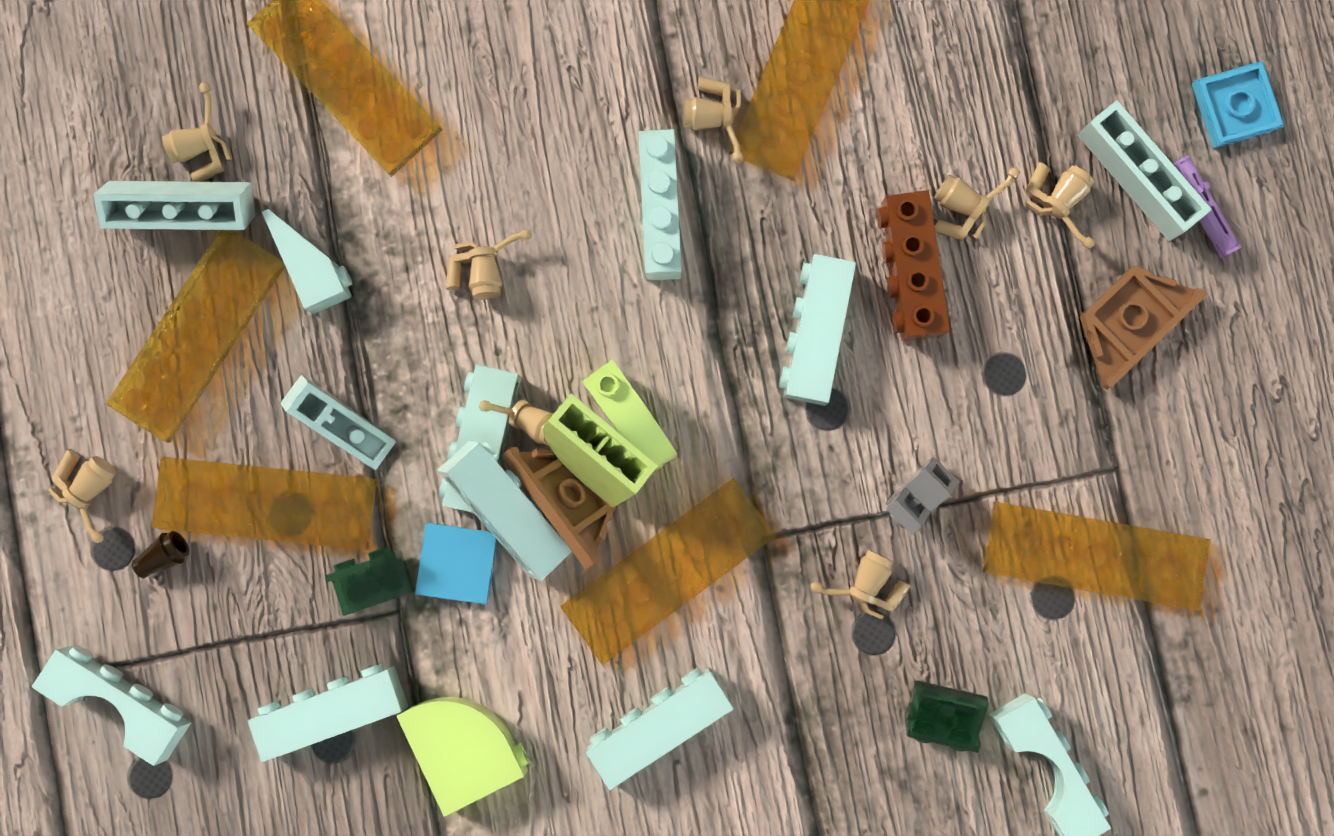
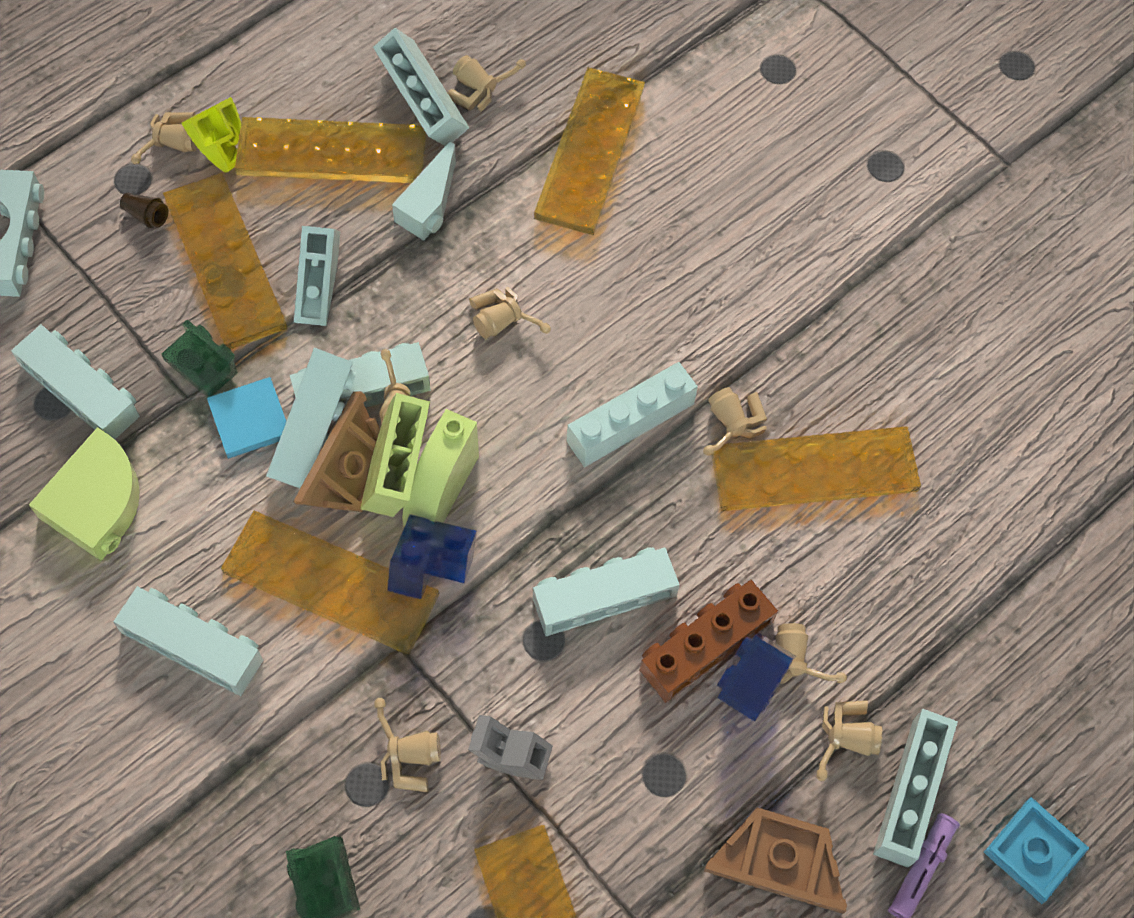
camera: 55 degrees right, 20 degrees down
(111, 441) = (216, 133): none -> neon yellow brick
(695, 466) = (429, 550): none -> clear blue brick
(986, 249) = (755, 677): none -> clear blue brick

